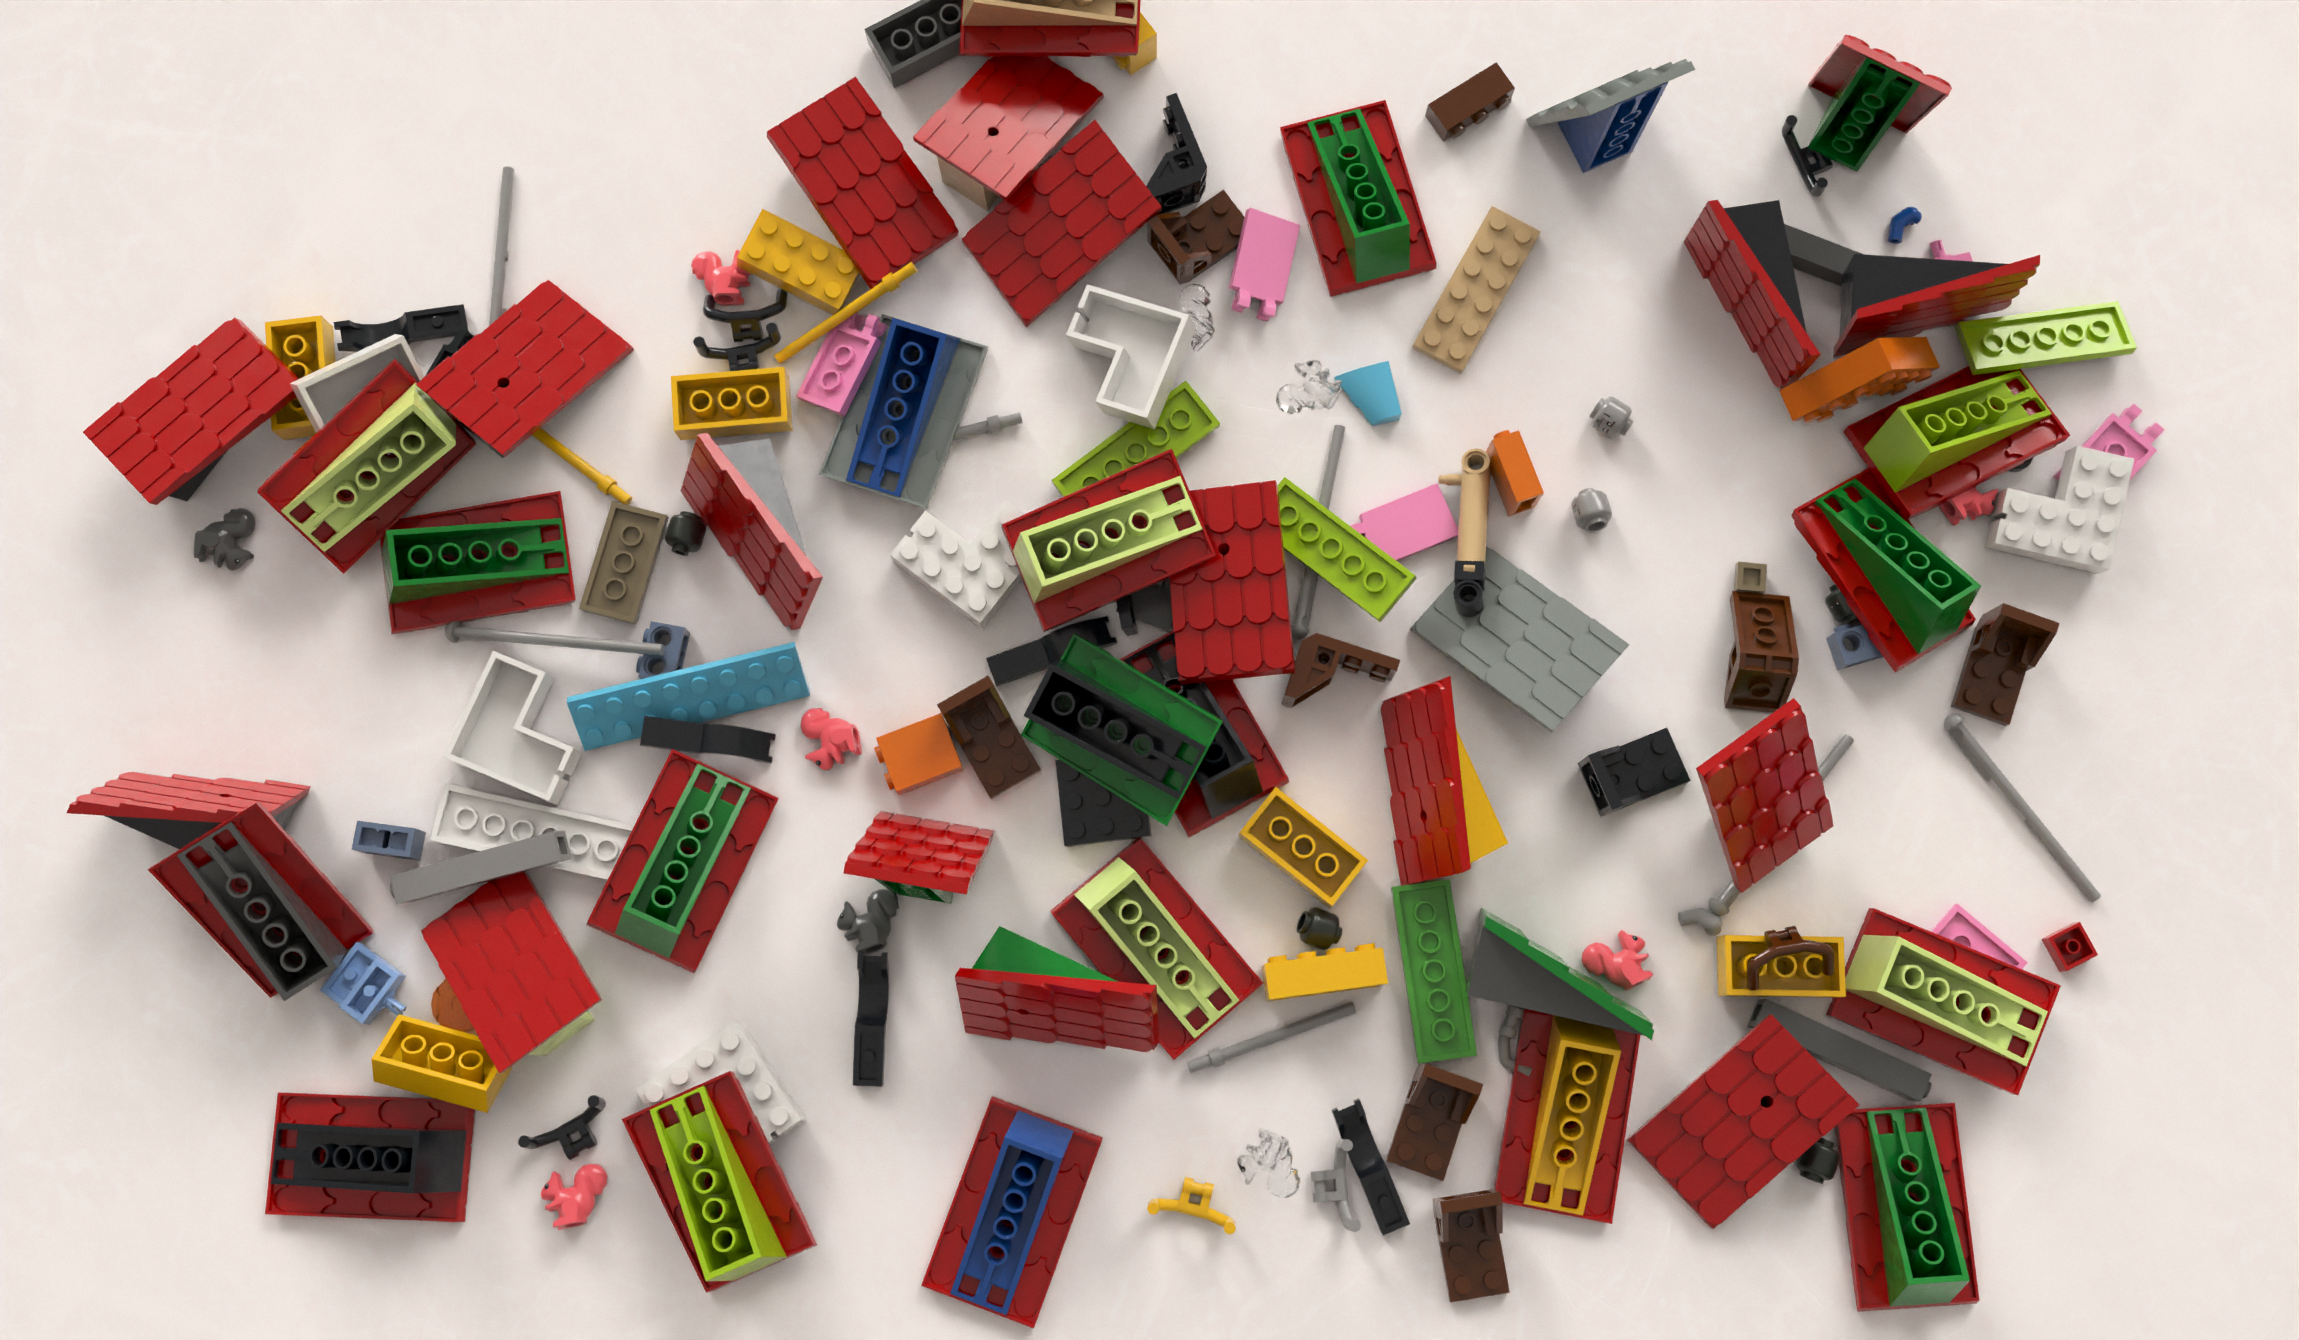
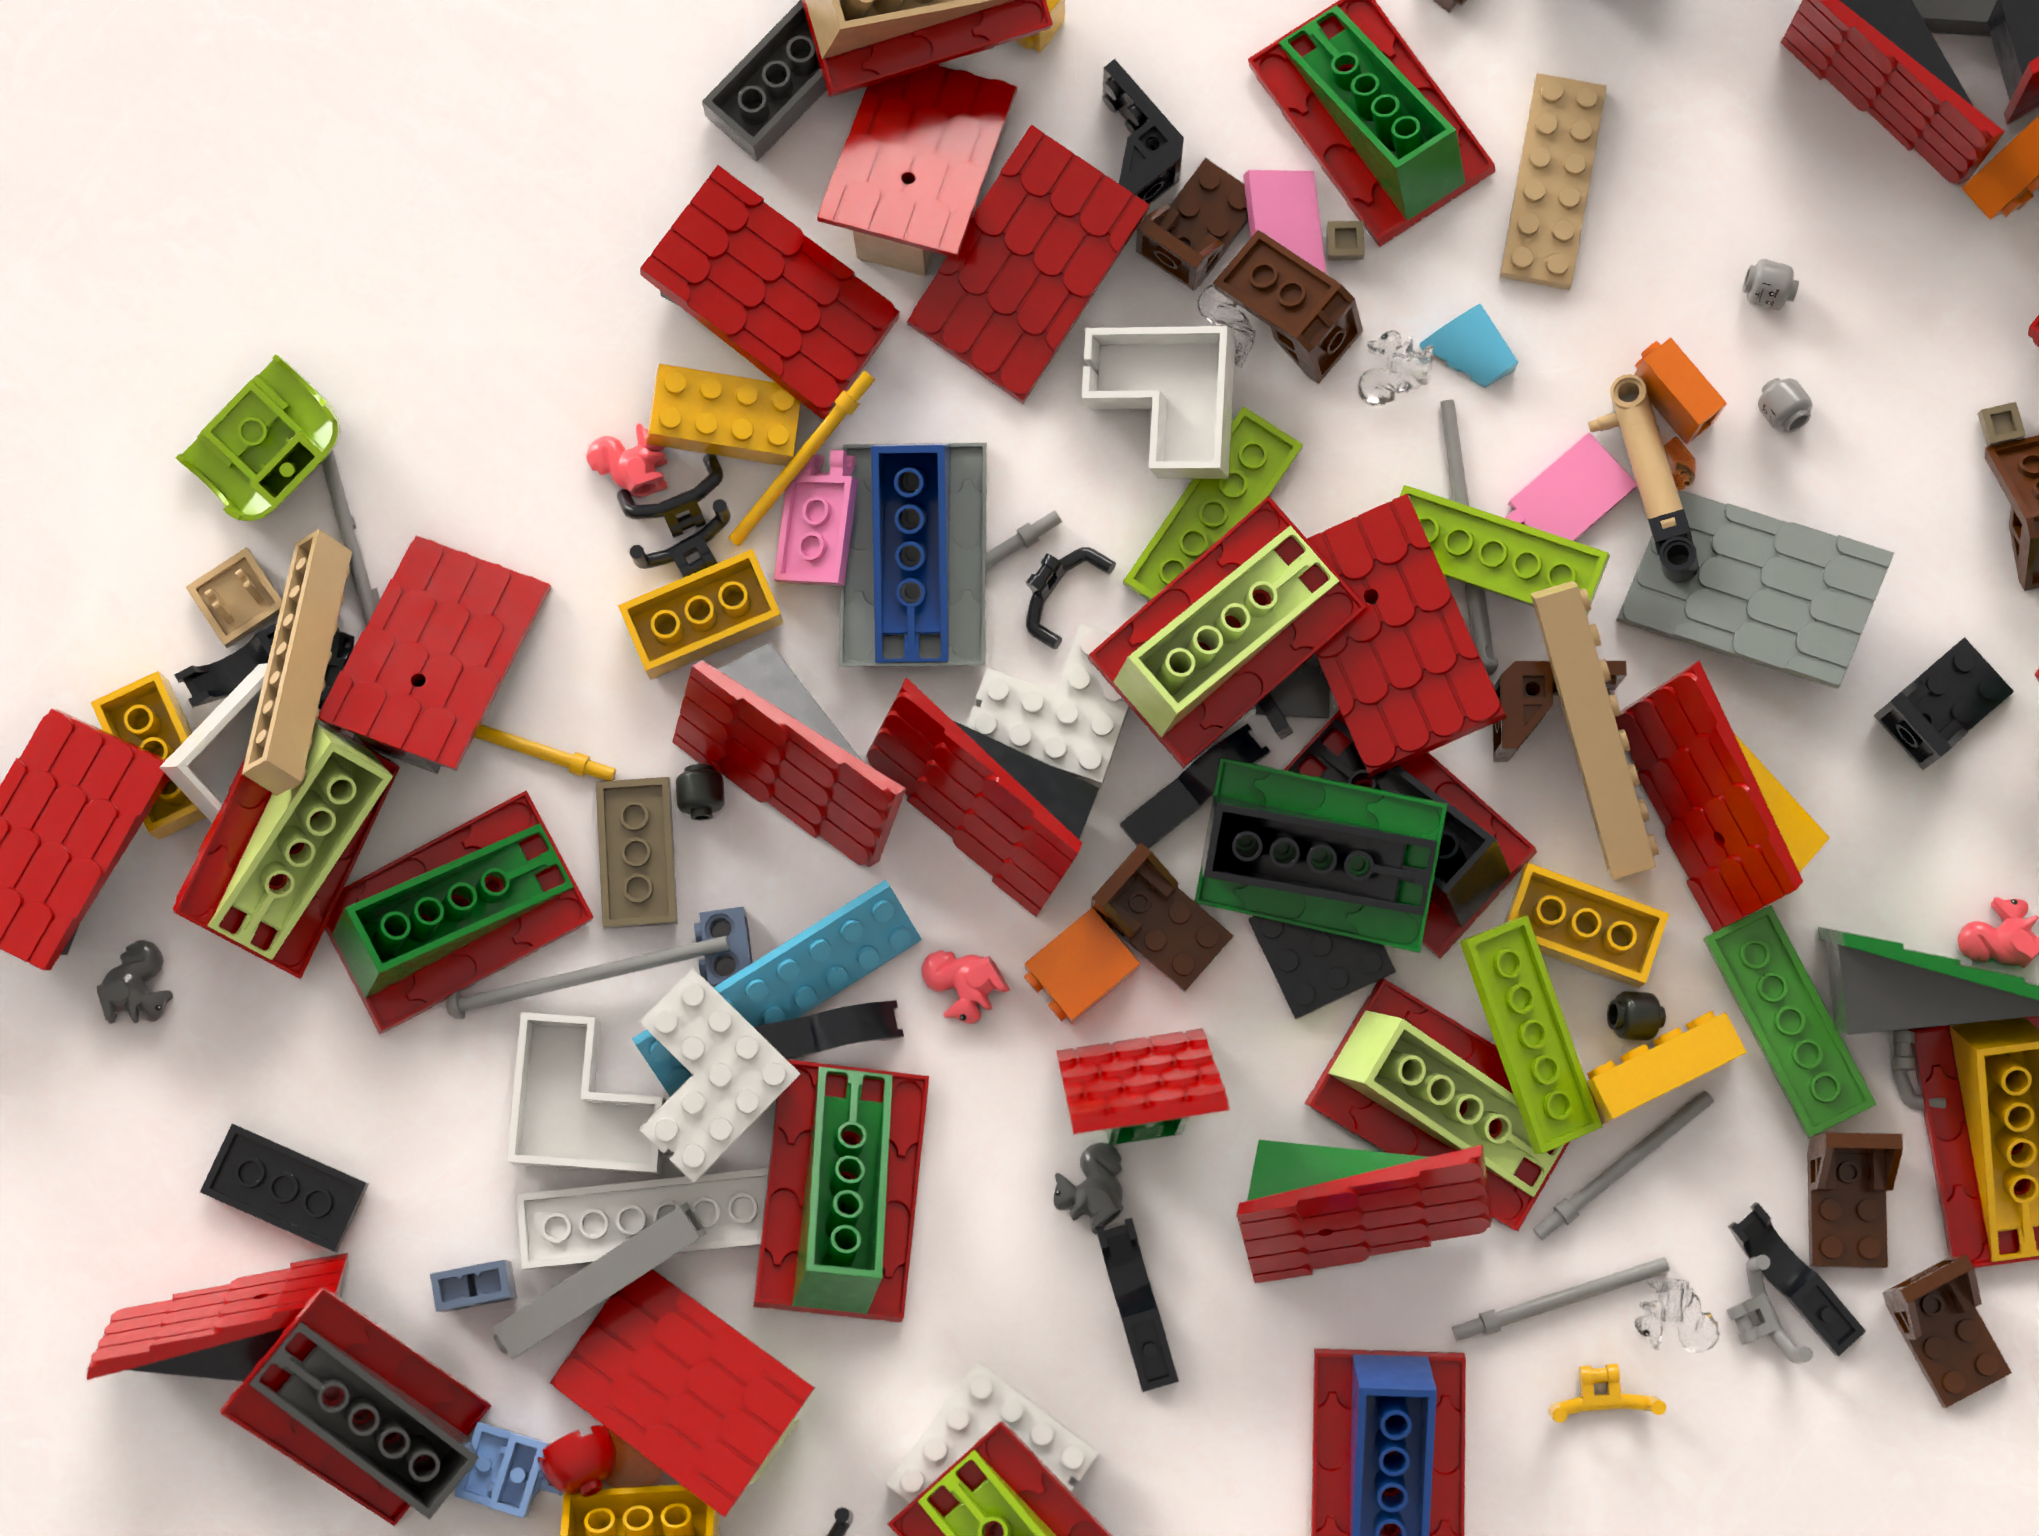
camera: 15 degrees left, 0 degrees up
(280, 723) = (284, 1188): none -> black plate
(402, 282) = (236, 597): none -> tan plate
(416, 997) = (580, 1462): none -> red cylinder
(417, 341) = (297, 663): none -> tan brick
(460, 174) = (264, 442): none -> lime piece
(626, 743) = (731, 1077): none -> white piece
(896, 610) = (994, 801): none -> red piece
(994, 462) = (1047, 579): none -> black piece
(1131, 1121) = (1491, 1321): none -> light grey bar
(1231, 916) = (1531, 1034): none -> lime plate
(1250, 316) = (1304, 307): none -> reddish brown bracket
(1305, 283) = (1345, 240): none -> dark tan plate
(1357, 703) = (1593, 729): none -> tan brick
(1500, 531) = (1684, 463): none -> clear orange arm

